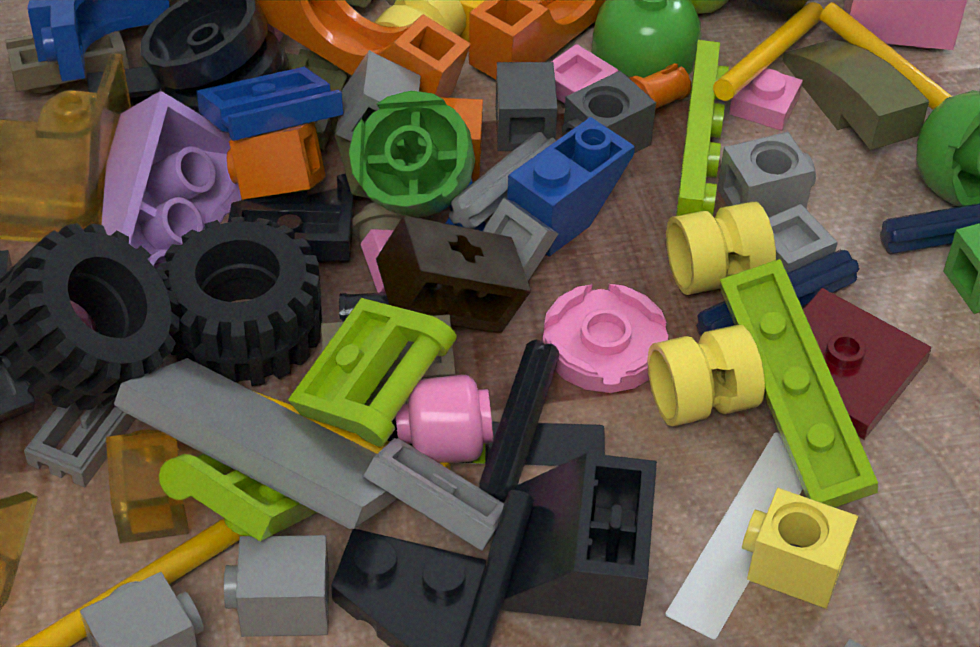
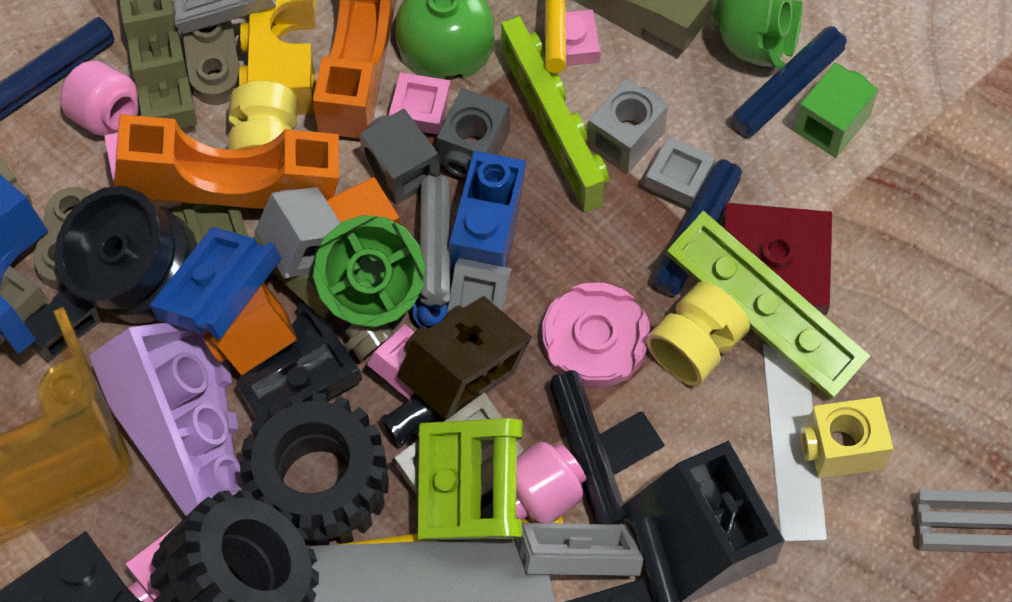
camera: 30 degrees left, 15 degrees up
(665, 85) = (490, 76): orange pin -> none
(713, 248) = (631, 219): light yellow wheel -> none

